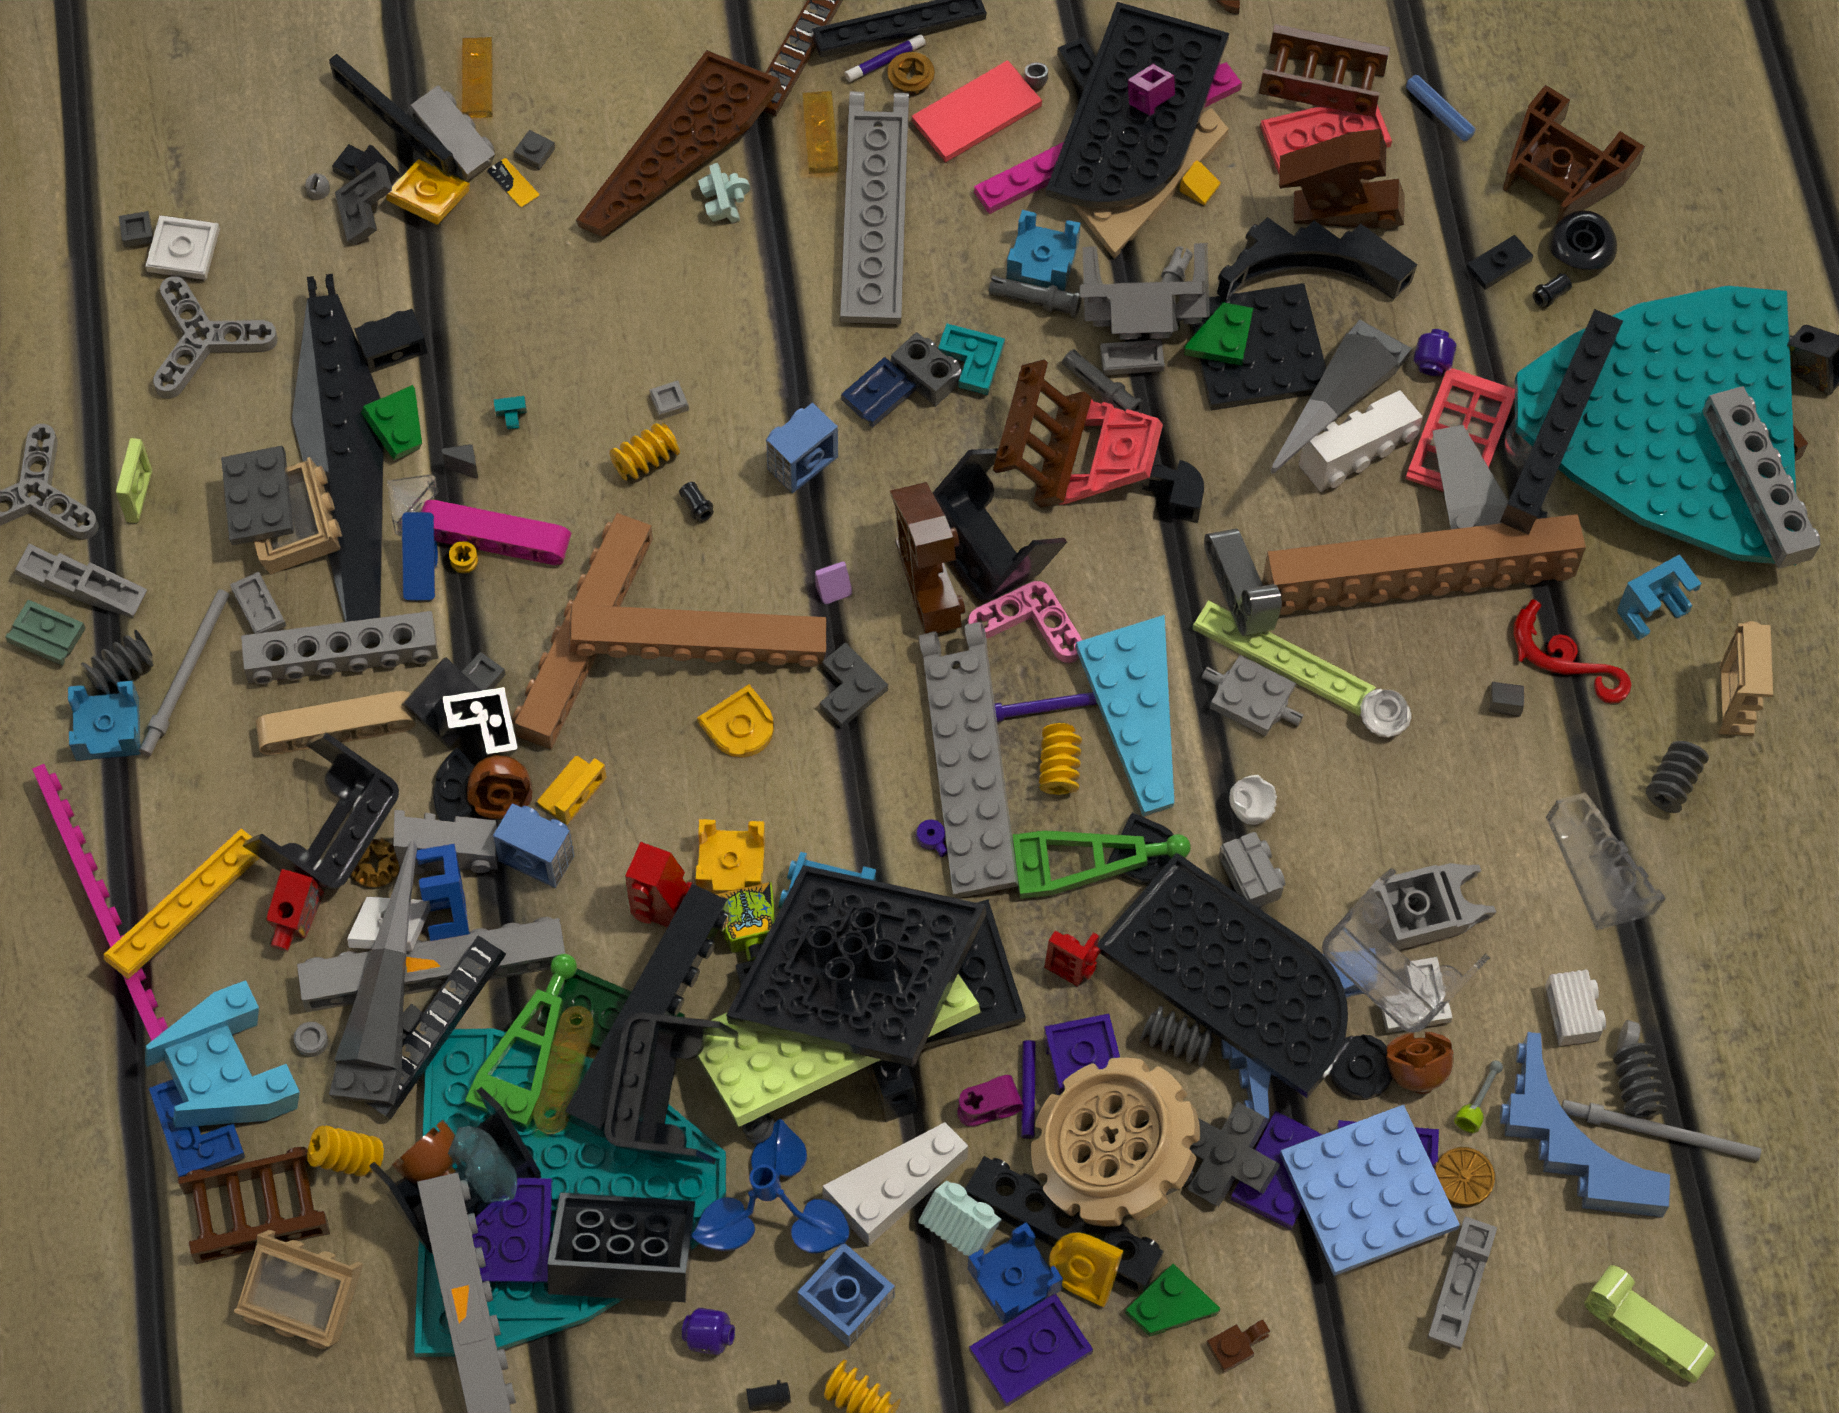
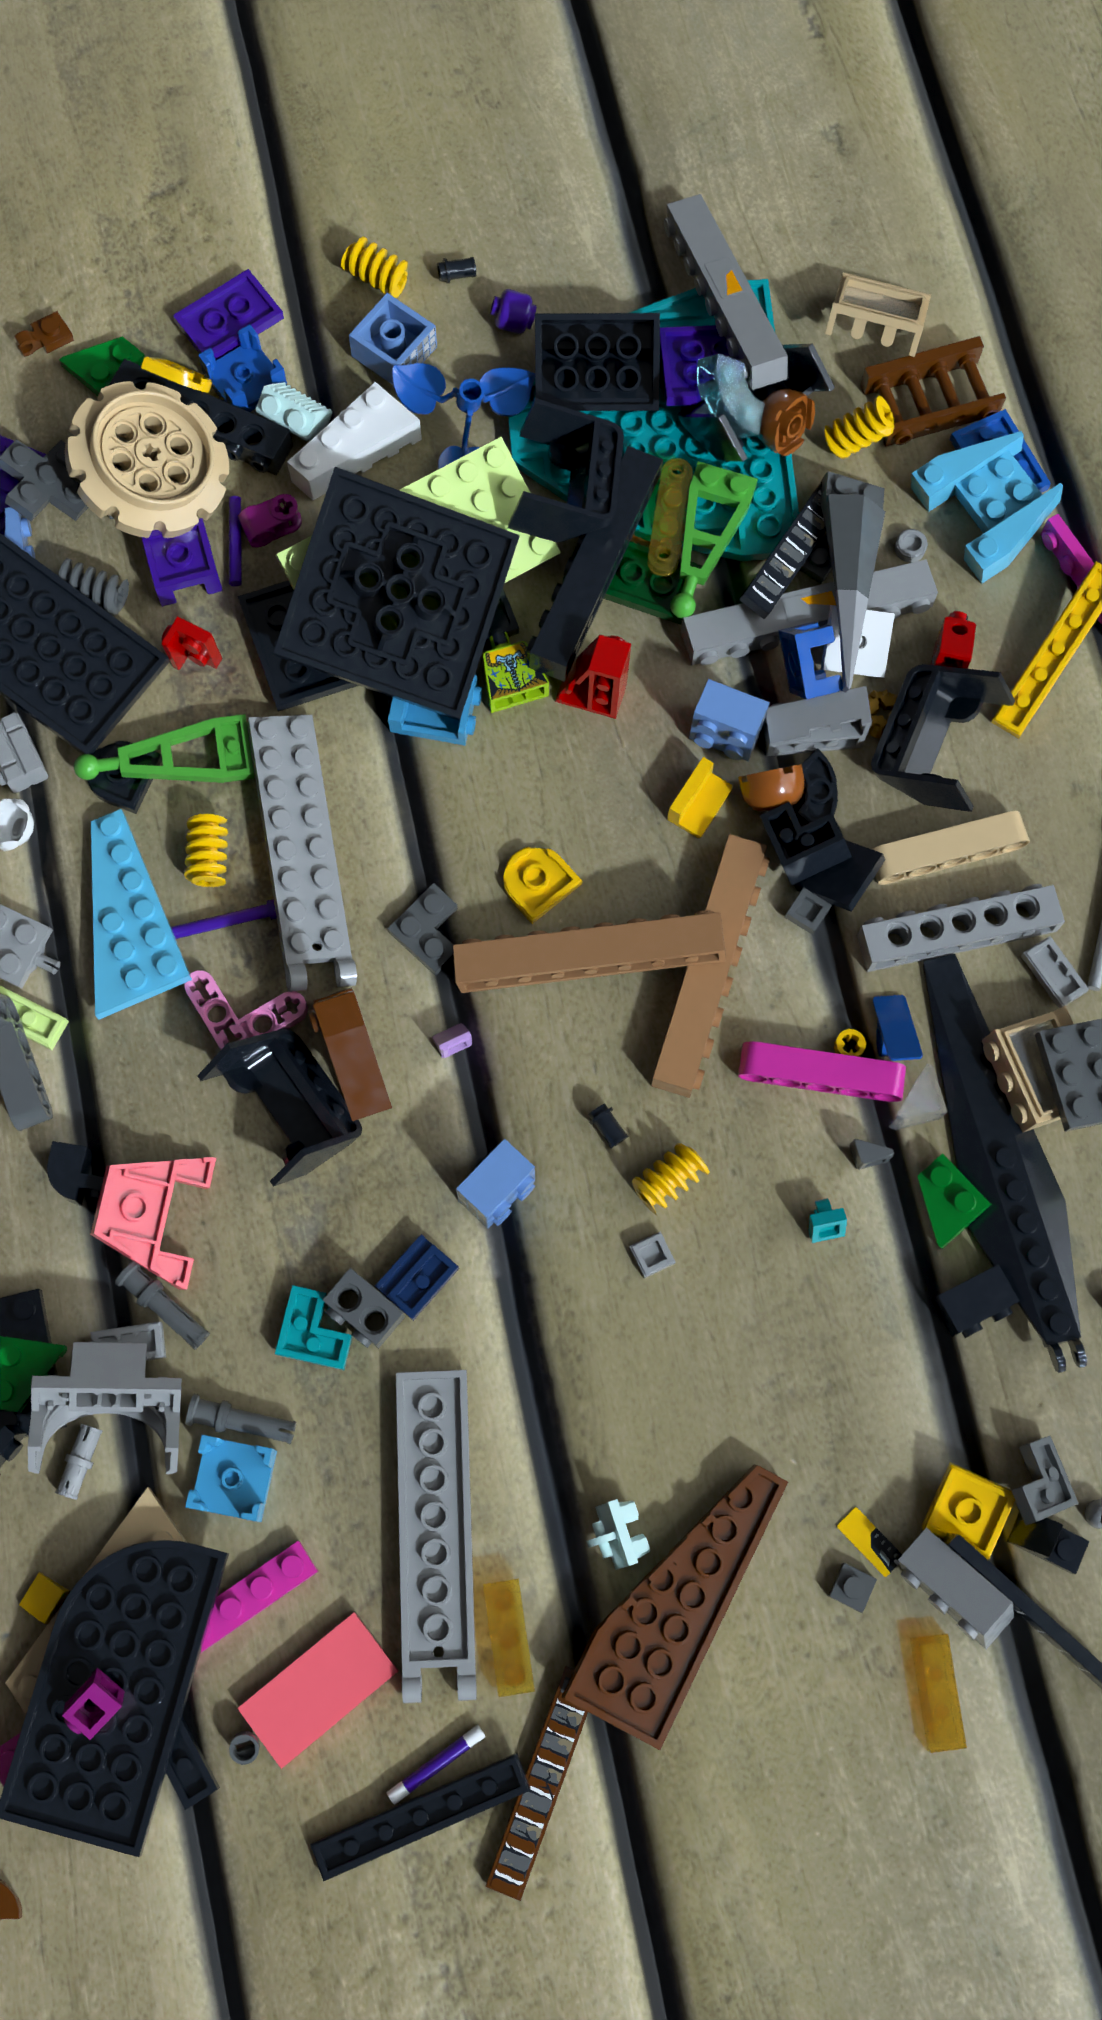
camera: 175 degrees right, 10 degrees up
(730, 857) = (533, 733): yellow panel -> none
(901, 66) = (387, 1751): pearl gold gear -> none
(931, 842) = (333, 770): dark purple piece -> none
(1064, 439) = (209, 1211): reddish brown fence -> none

